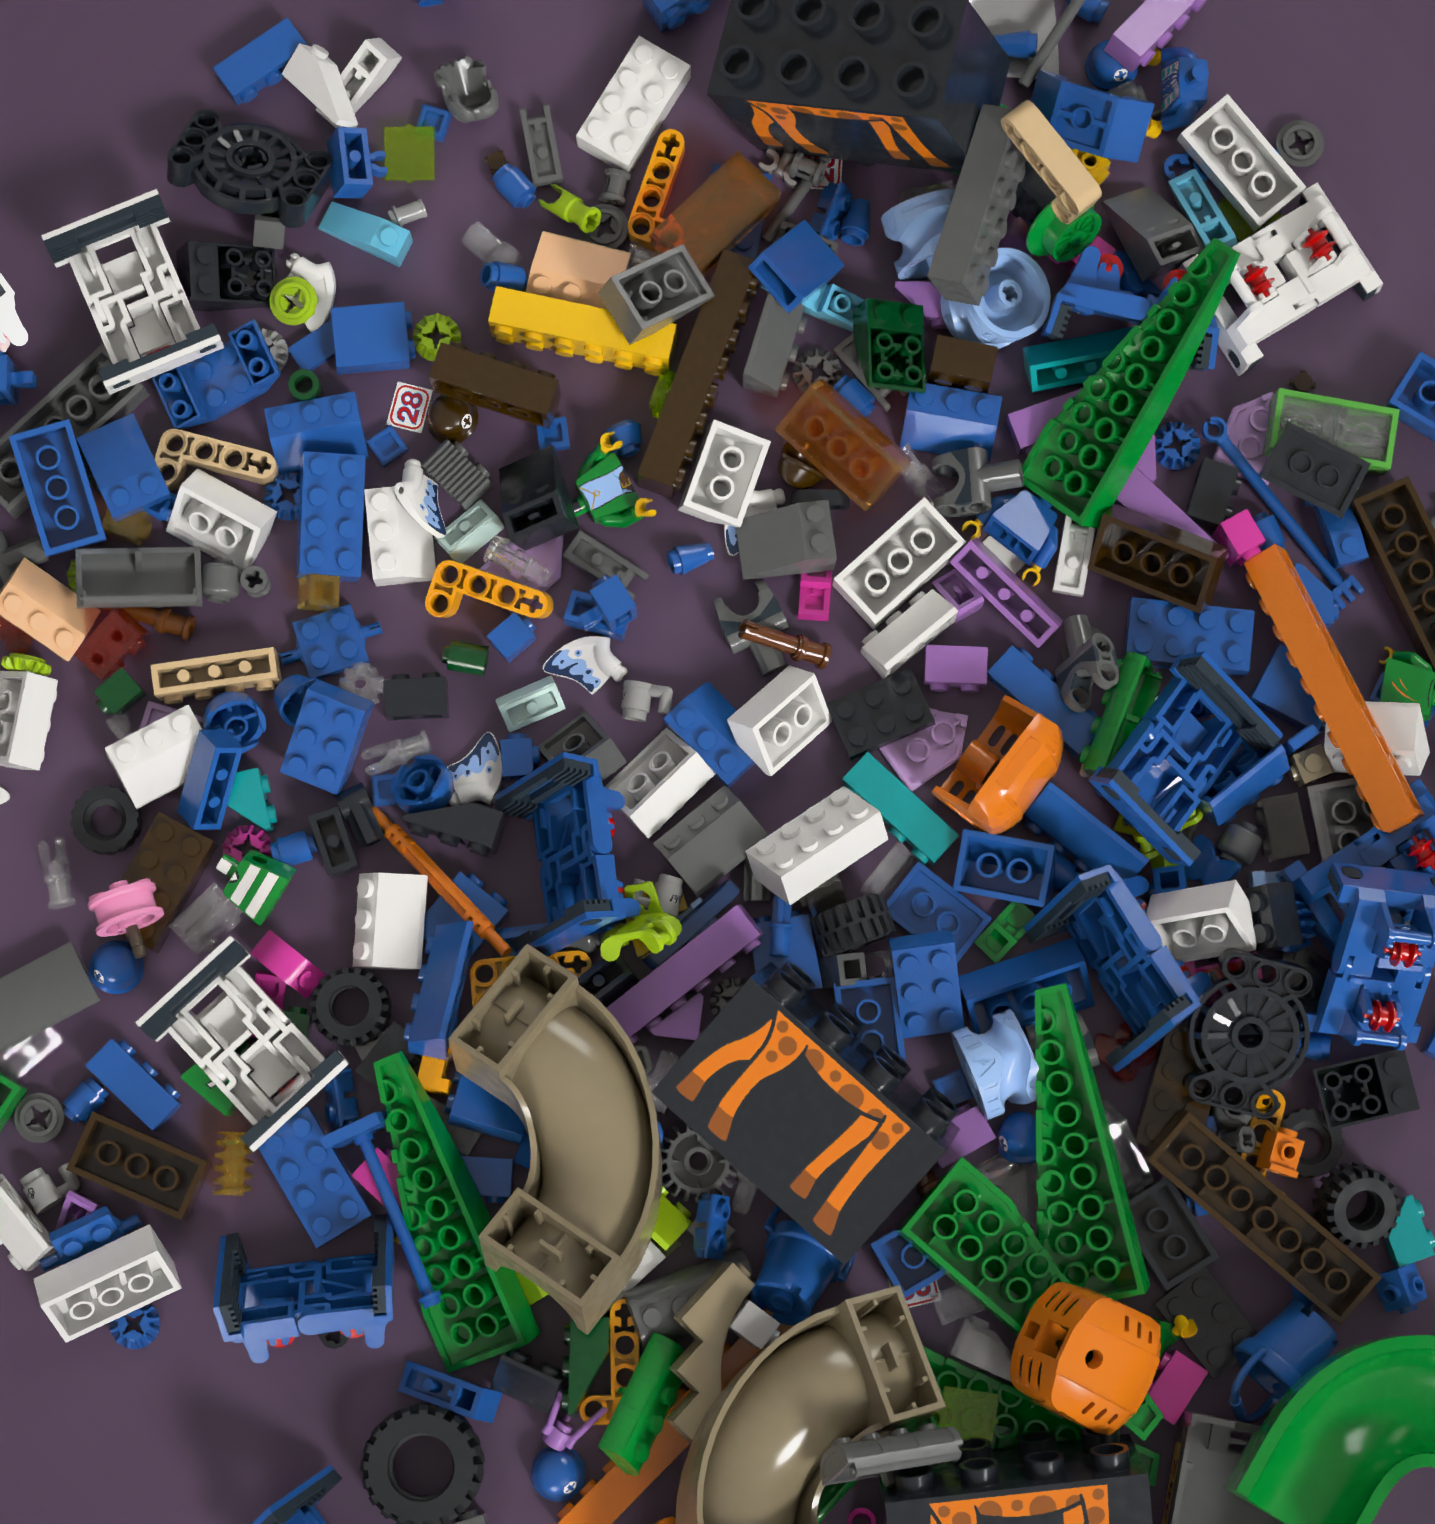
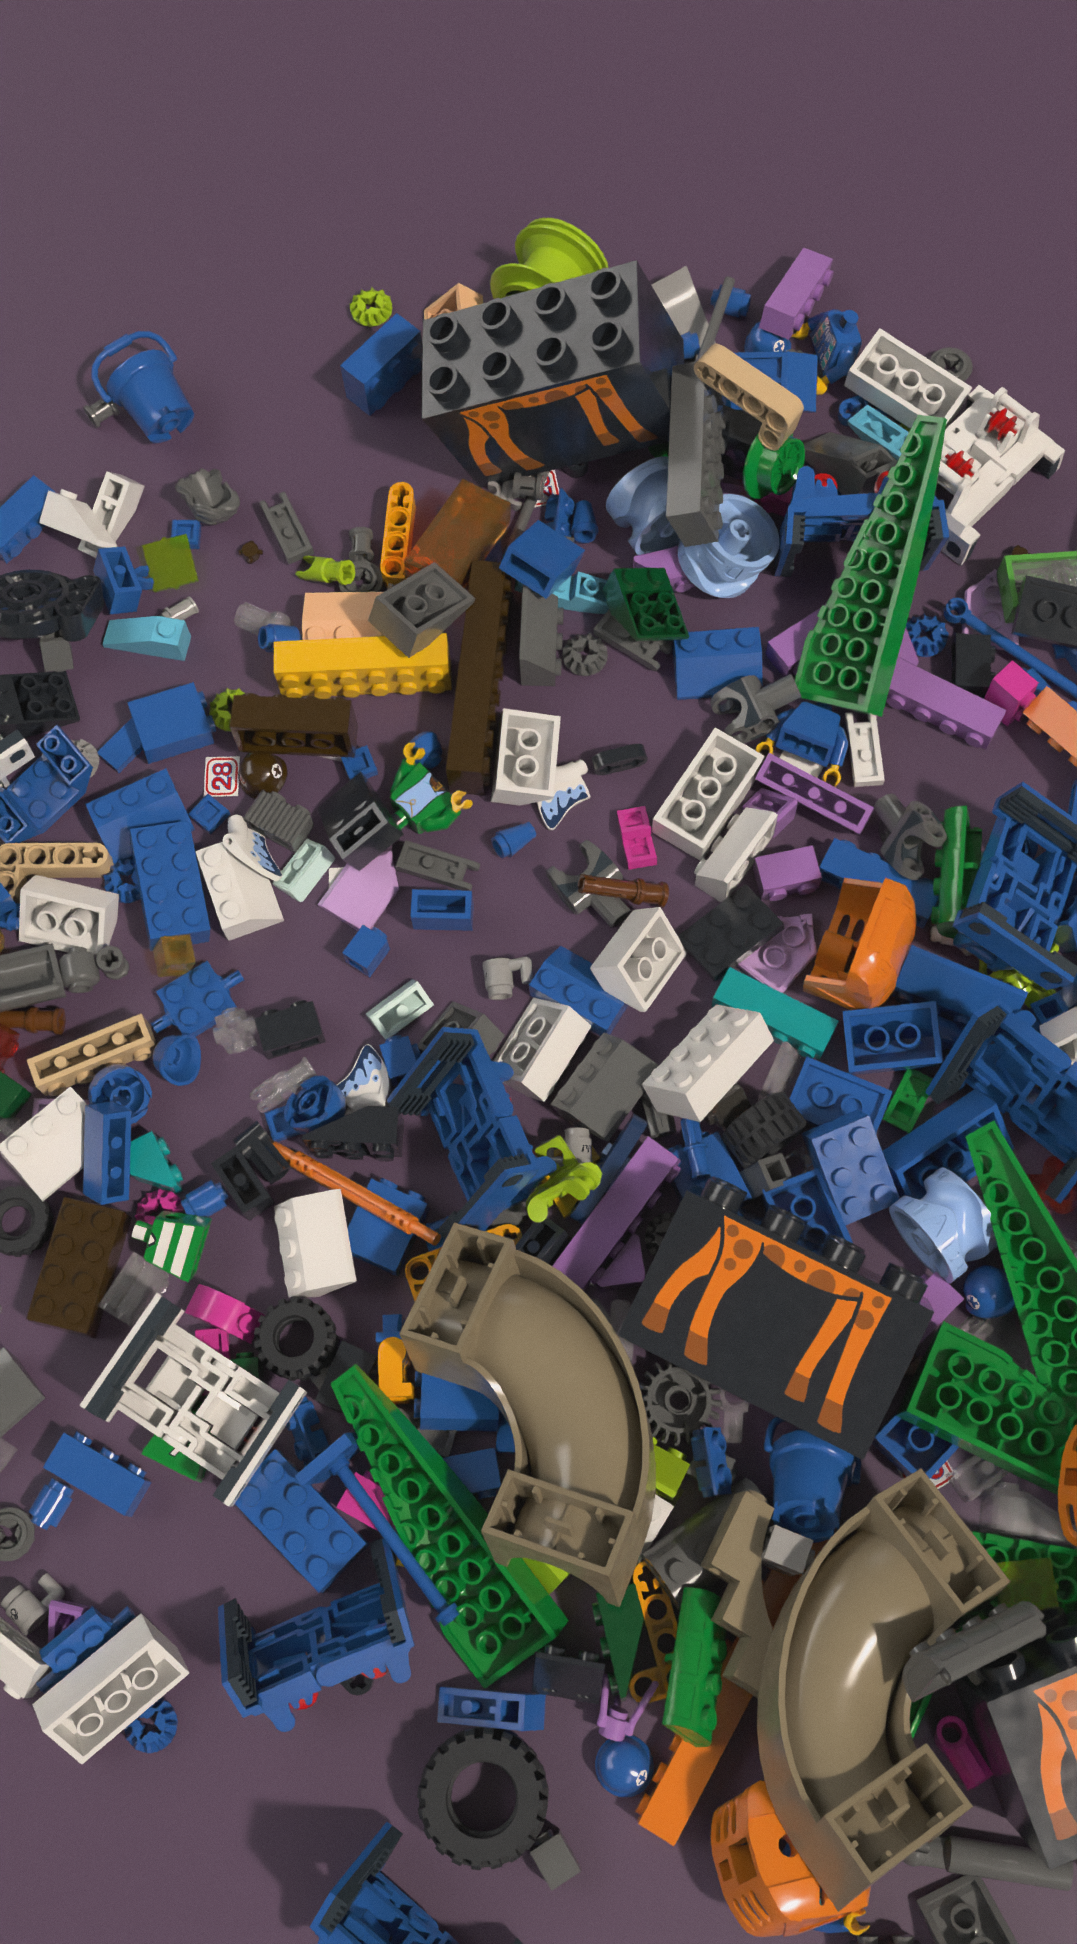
camera: 10 degrees left, 10 degrees down
(115, 967) = (56, 1362): blue helmet -> none
(126, 910) = (48, 1297): bright pink wheel -> none
(139, 1166) = (119, 1556): dark brown brick -> none
(233, 1165) = (215, 1530): clear yellow piece -> none
(291, 287) = (89, 698): lime gear -> none
(304, 386) = (118, 774): dark green brick -> none
(322, 279) = (106, 697): white arm -> none
(327, 736) = (212, 1084): blue brick -> none
(440, 990) = (380, 1294): blue slope -> none
(466, 657) = (328, 981): dark green brick -> none
(492, 594) = (337, 916): light orange beam -> none
(514, 186) = (271, 565): blue brick -> none
(517, 563) = (355, 882): clear piece -> none
(586, 662) = (442, 957): arm -> none
(611, 604) = (452, 888): blue brick -> none
(633, 105) = (360, 473): white brick -> none
(660, 392) = (447, 702): clear neon green gear -> none
(787, 541) = (601, 799): dark grey slope -> none
(797, 469) = (591, 735): dark brown helmet -> none
(843, 444) = (627, 703): clear orange brick -> none
(856, 394) = (624, 665): blue brick -> none
(919, 476) = (701, 716): clear piece -> none
(953, 1086) = (906, 1258): blue tile -> none
(962, 364) = (714, 606): dark brown brick -> none
(1069, 359) = (805, 586): teal brick -> none
(1157, 558) = (944, 726): dark brown brick -> none
(1168, 630) = (982, 781): blue brick -> none

